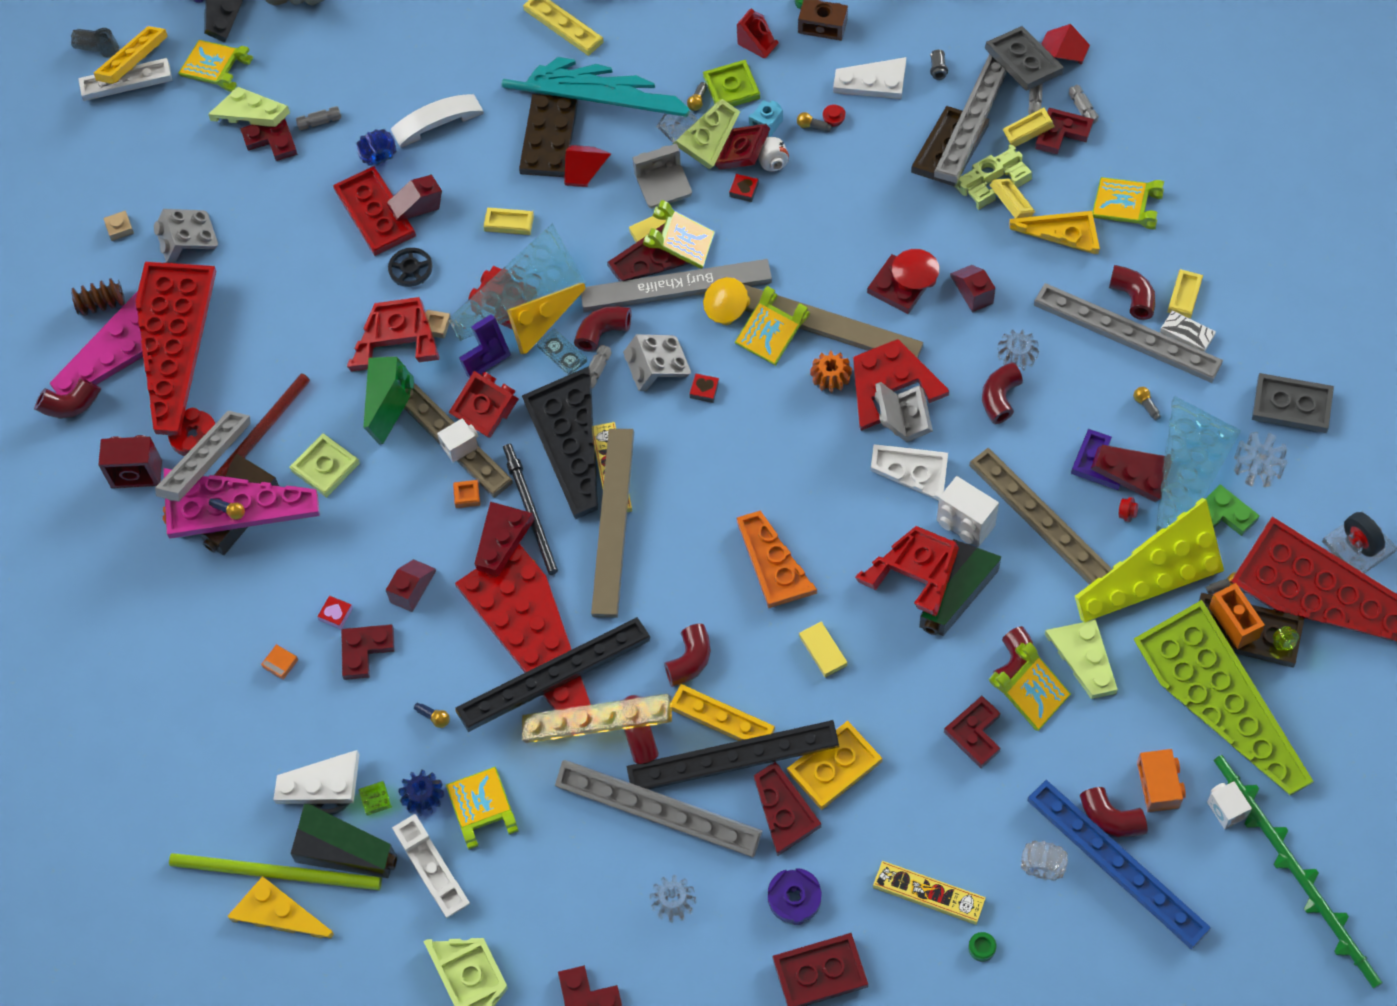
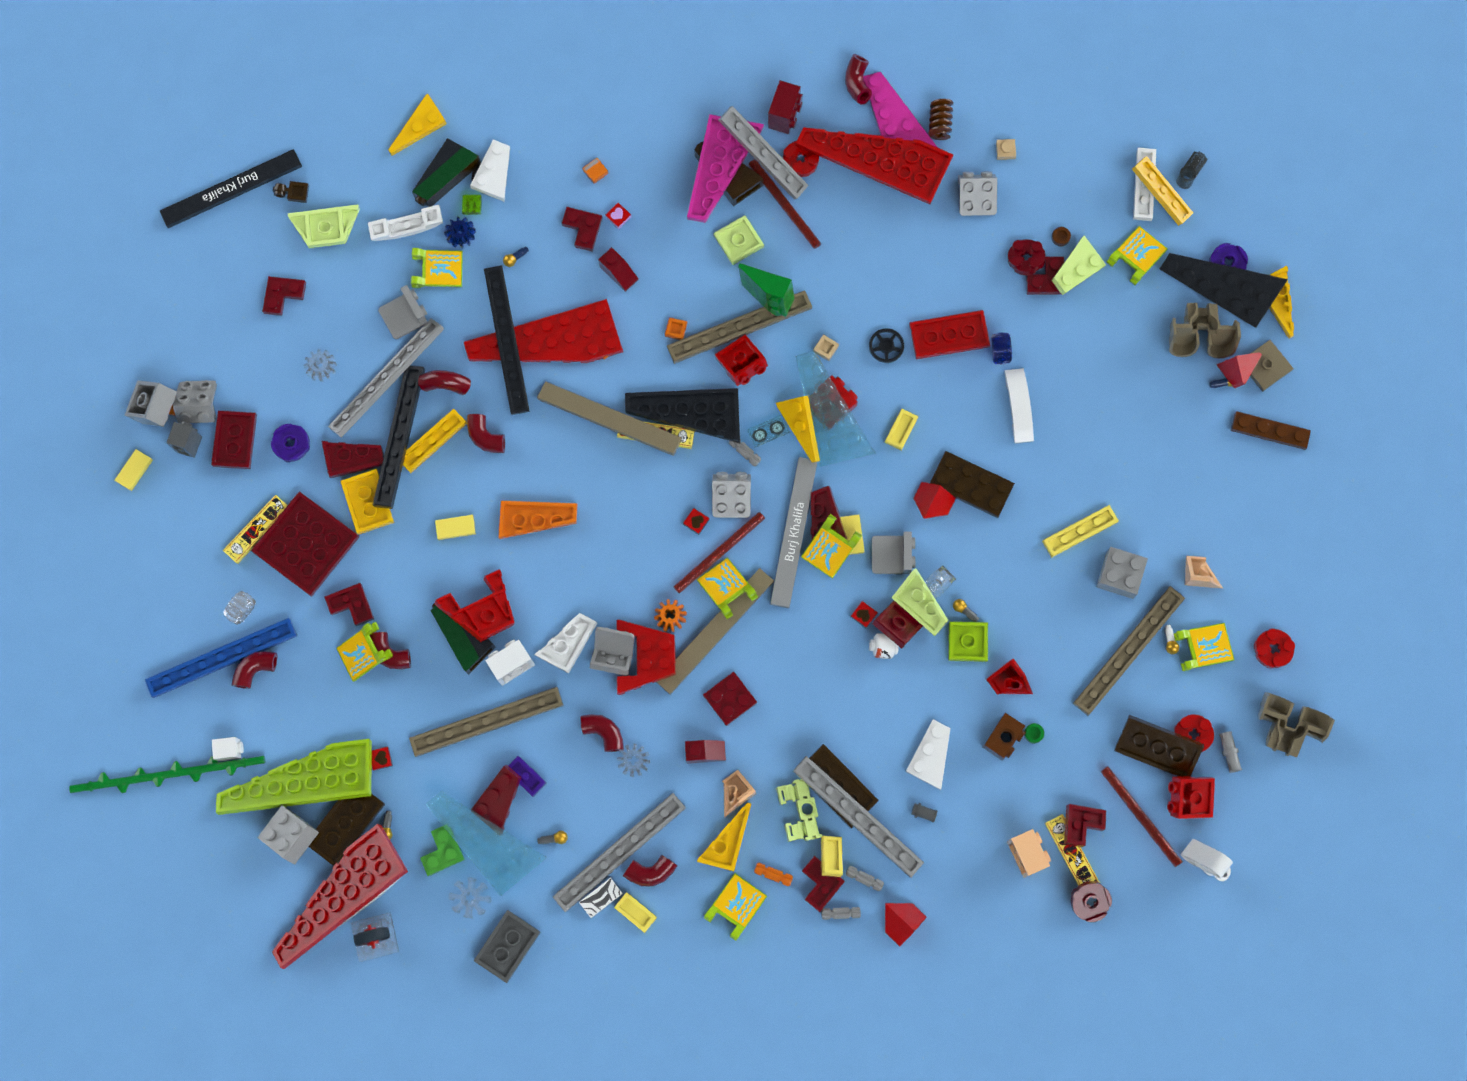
camera: 110 degrees right, 15 degrees up
(214, 140) = (1061, 236): none -> reddish brown tile
(234, 510) = (706, 160): piece -> none
(252, 150) = (1030, 248): none -> dark red plate
(275, 871) = (448, 127): lime piece -> none
(318, 118) = (1053, 317): light grey axle -> none
(395, 324) = (834, 320): red wing -> none
(416, 198) = (942, 363): dark red slope -> none
(458, 440) = (714, 331): white brick -> none
(491, 347) = (786, 374): dark purple plate -> none
(501, 536) = (626, 338): dark red wing -> none
(515, 468) = (683, 367): black bar -> none
(560, 819) = (403, 314): none -> light grey bracket
(586, 86) = (996, 529): teal animal -> none
(597, 718) = (457, 354): clear yellow plate -> none
(598, 323) = (779, 462): dark red cylinder -> none
(726, 300) = (762, 561): yellow dish -> none
(732, 351) = (719, 552): none -> clear red piece
(767, 113) = (914, 650): medium azure brick -> none
(806, 120) = (908, 686): piece -> none
(834, 115) = (906, 709): red plate -> none
(915, 269) = (730, 710): red dish -> none
(922, 819) = (305, 543): none -> dark red plate
(982, 946) = (207, 548): green tile -> none
(1004, 237) = (736, 792): none -> light nougat slope
(1012, 198) = (771, 815): light yellow tile -> none
(1024, 58) = (898, 880): dark grey plate -> none
(1074, 177) = (773, 874): none -> orange axle
(1085, 654) = (375, 703): yellowish green wing -> none
(1128, 509) = (471, 782): red plate -> none
(1146, 619) = (381, 758): none -> tile
(1160, 780) = (263, 711): orange brick -> none
(1164, 562) = (414, 780): neon yellow wing -> none
(1236, 616) = (347, 812): orange brick -> none
(1285, 638) = (319, 842): clear neon green plate -> none
(1296, 680) = (288, 835): none -> light grey brick

